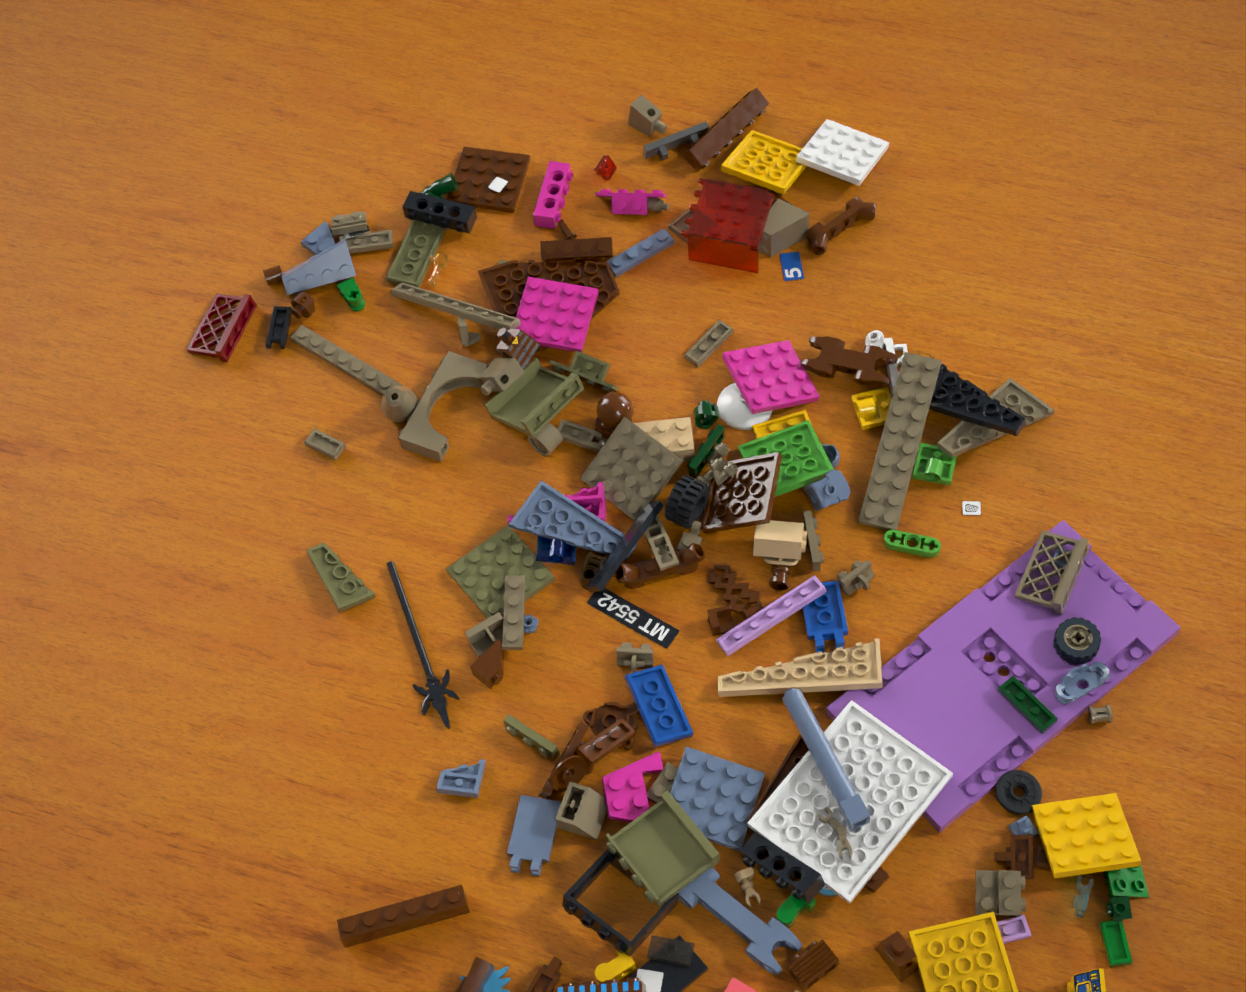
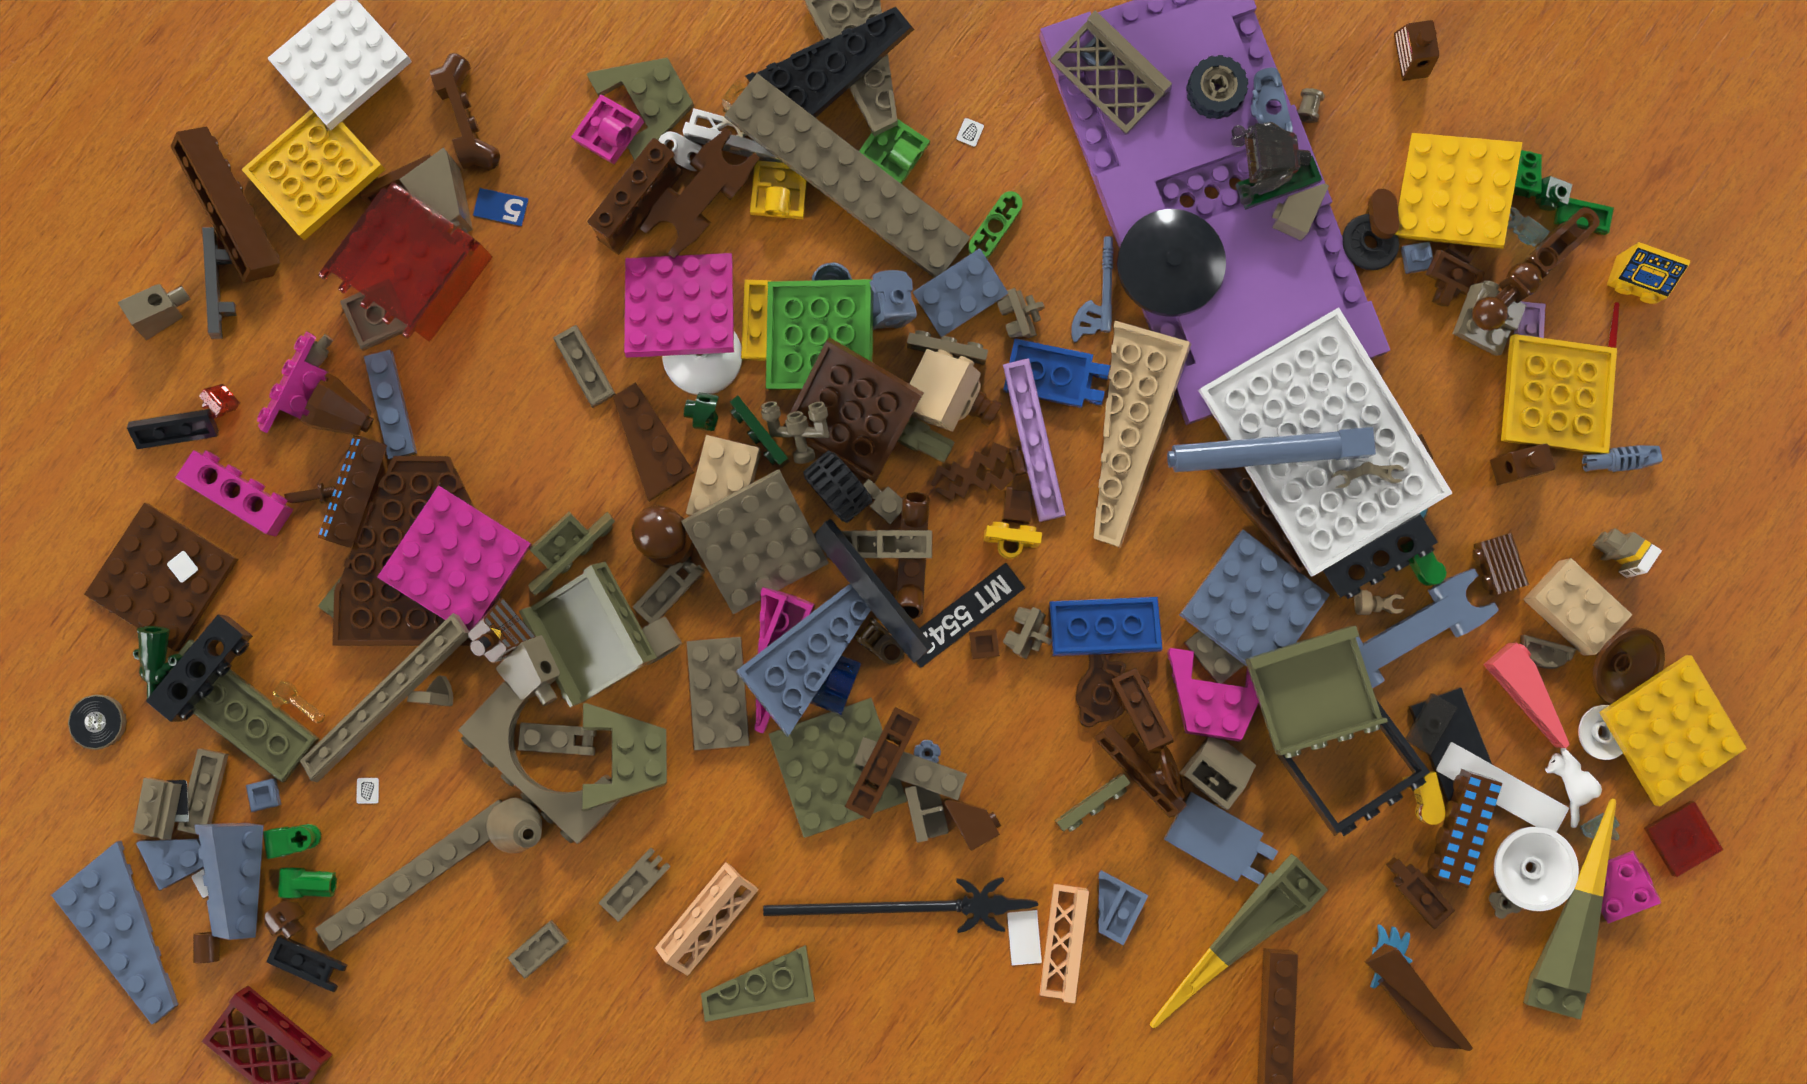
camera: 80 degrees left, 25 degrees up
(271, 231) = (117, 927): none -> sand blue wing
(327, 308) = (301, 883): none -> green piece
(374, 273) = (263, 795): none -> sand blue tile
(374, 524) = (702, 917): none -> light nougat fence
(382, 482) = (633, 885): none -> dark tan hinge
(390, 179) = (97, 722): none -> black tile
(395, 324) = (367, 790): none -> white sticker
(422, 729) = (1024, 937): none -> white sticker
(427, 757) = (1075, 942): none -> light nougat fence
(462, 409) = (555, 739): none -> dark tan plate
(464, 453) = (637, 757): none -> olive wing
(497, 882) = (1272, 906): none -> olive plate
(510, 588) = (882, 763): none -> reddish brown hinge
(511, 492) = (717, 693): none -> dark tan plate
(579, 152) = (173, 429): none -> black plate
(616, 632) = (984, 644): none -> reddish brown plate
(624, 222) = (336, 409): none -> reddish brown cone
(674, 395) = (652, 447): none -> reddish brown wing
(695, 617) = (1024, 537): none -> yellow plate
(743, 547) = (921, 438): none -> olive piece
(808, 315) = (634, 196): none -> reddish brown fence
(854, 535) = (960, 292): none -> sand blue plate
(867, 300) = (607, 129): none -> dark pink plate
(884, 632) = (1105, 310): none -> sand blue piece
(904, 322) = (655, 93): none -> olive wing
(935, 655) = (1171, 262): none -> black dish
(1013, 724) = (1298, 211): none -> dark tan slope
(1037, 685) = (1271, 157): none -> clear smoke torso
(1043, 792) = (1383, 213): none -> reddish brown tile
(1074, 917) = (1527, 276): none -> reddish brown piece
(1182, 768) = (1416, 44): none -> reddish brown torso

